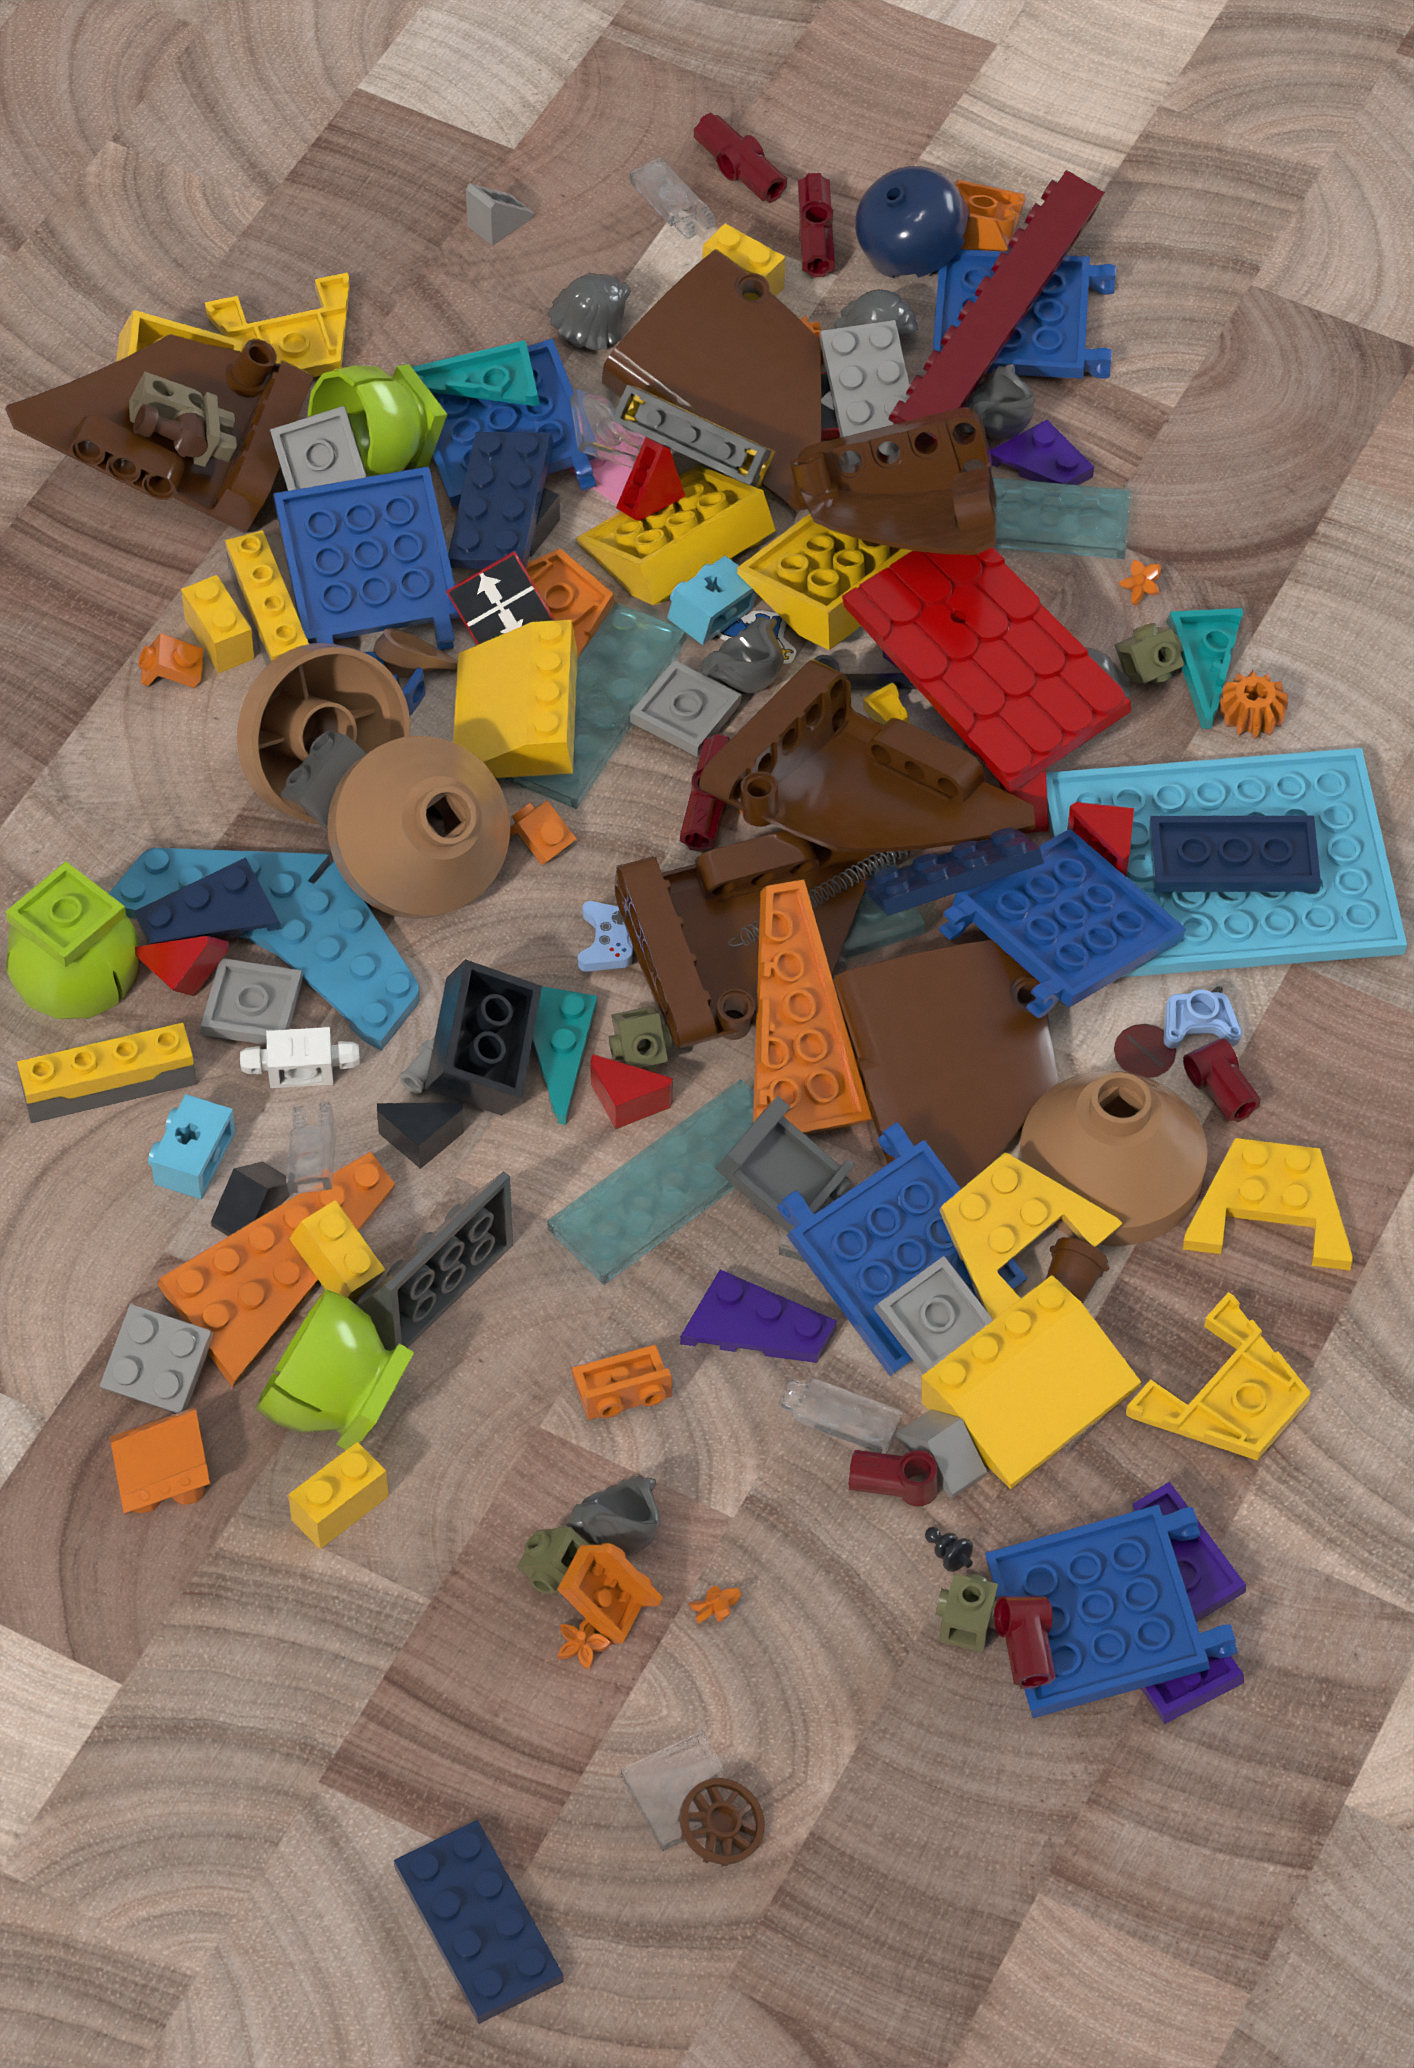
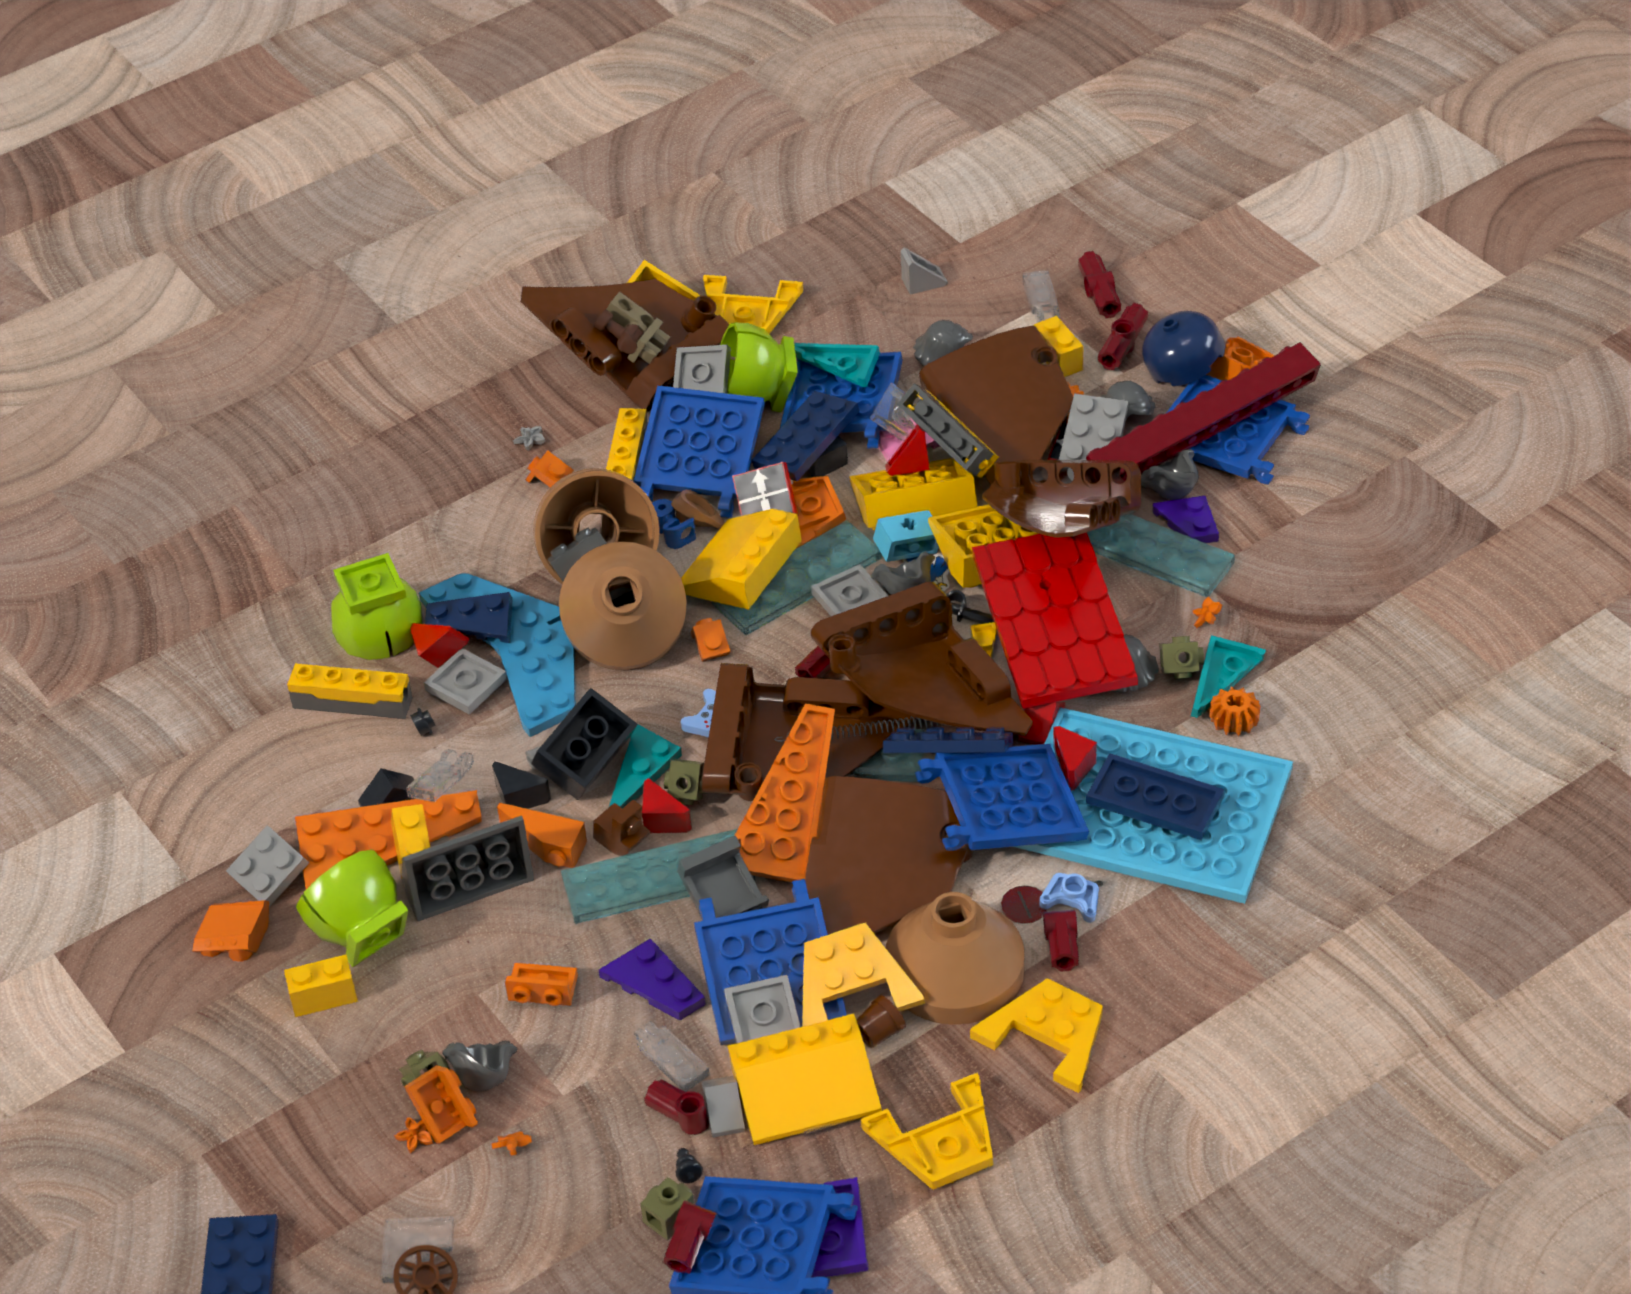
camera: 30 degrees right, 10 degrees down
(109, 618) = (530, 436): none -> light grey plant
(192, 1146) = (373, 748): medium azure brick -> none
(217, 624) = (588, 448): yellow brick -> none
(232, 1080) = (423, 721): none -> black plate
(299, 1057) = (471, 721): white piece -> none
(466, 1173) = (549, 836): none -> orange slope
(597, 1139) = (620, 828): none -> reddish brown brick

